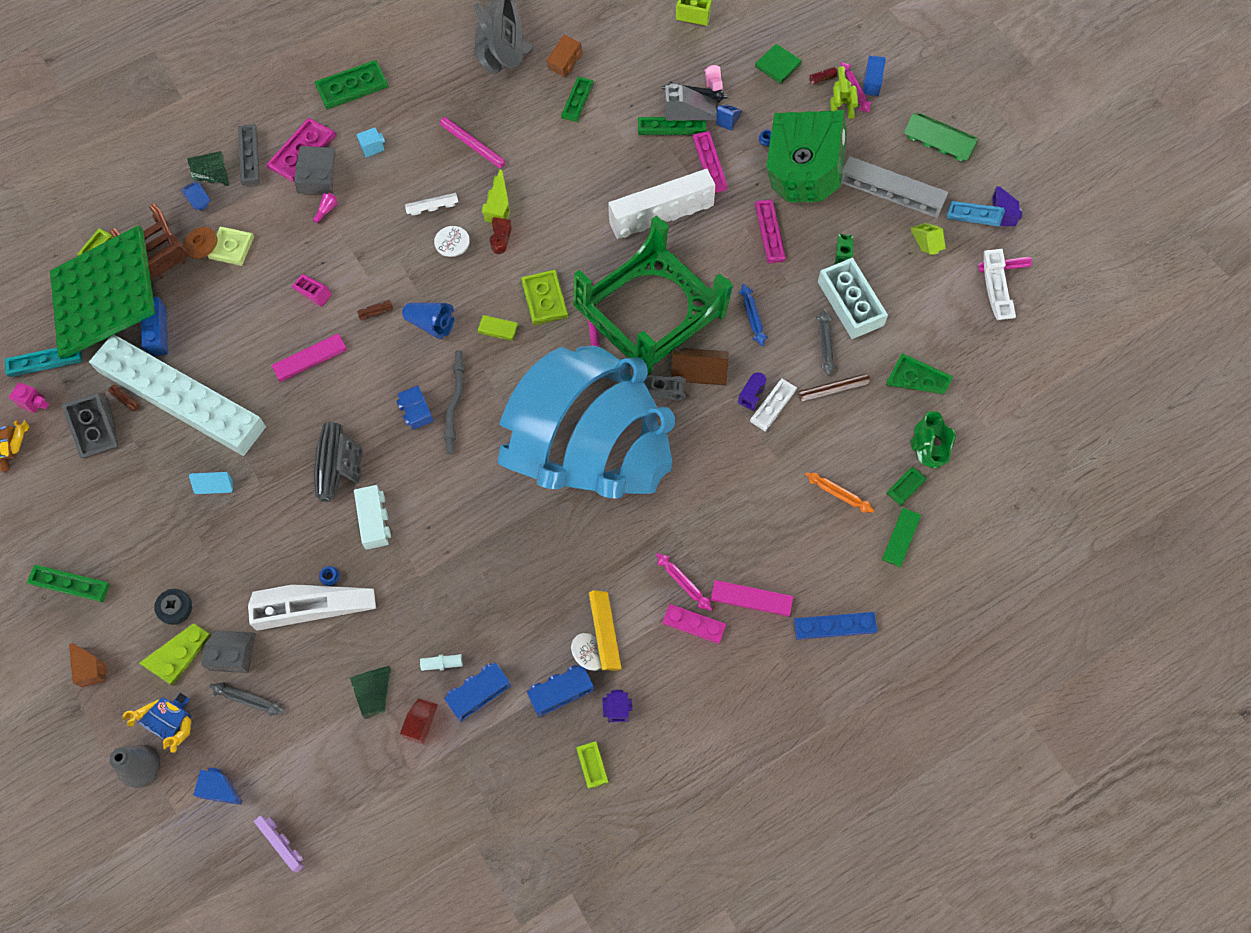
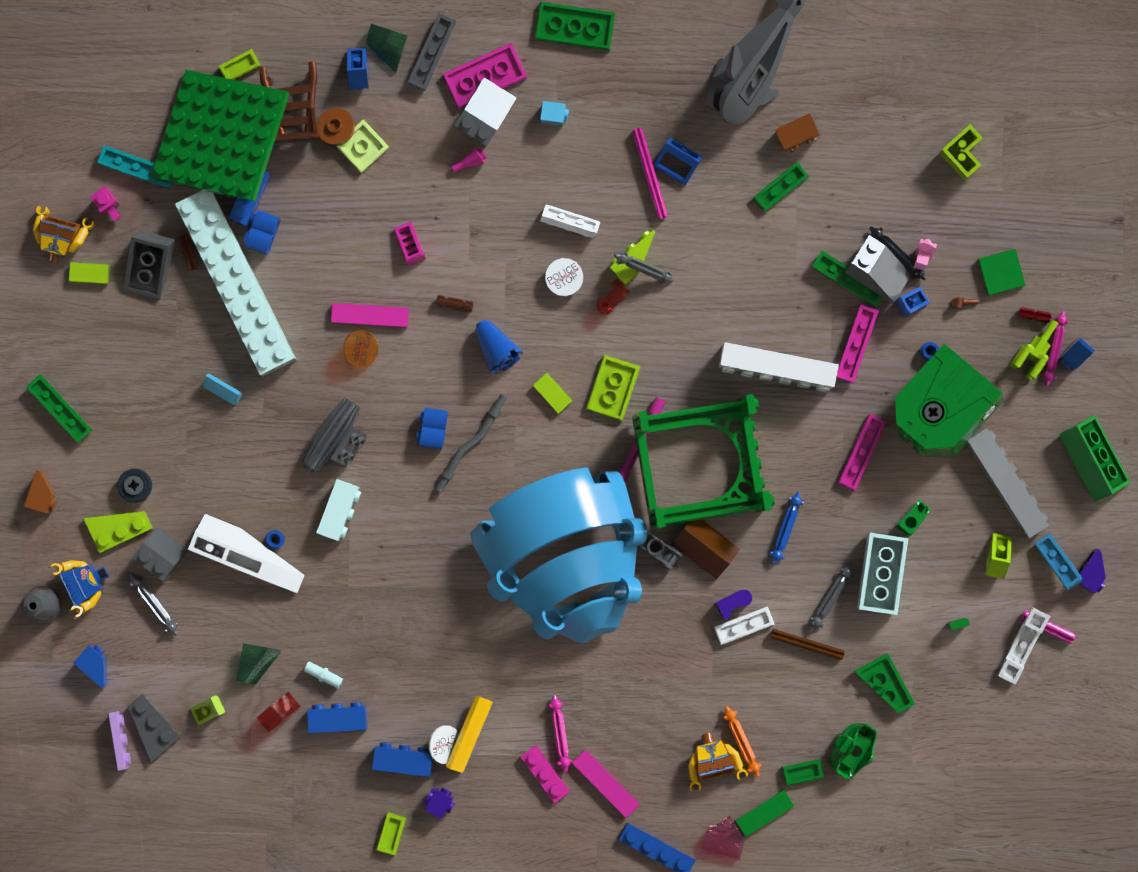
camera: 30 degrees right, 20 degrees up
(42, 462) = (89, 273): none -> lime tile
(179, 347) = (262, 232): none -> blue brick
(307, 811) = (152, 726): none -> dark grey wing
(315, 383) = (360, 348): none -> clear orange piece
(351, 759) = (207, 710): none -> lime slope
(488, 114) = (681, 152): none -> blue tile
(509, 195) = (643, 267): none -> dark grey wheel
(763, 97) = (958, 302): none -> copper hand
(828, 519) = (713, 761): none -> torso
(885, 580) = (724, 840): none -> clear pink slope
(938, 299) = (958, 623): none -> green tile

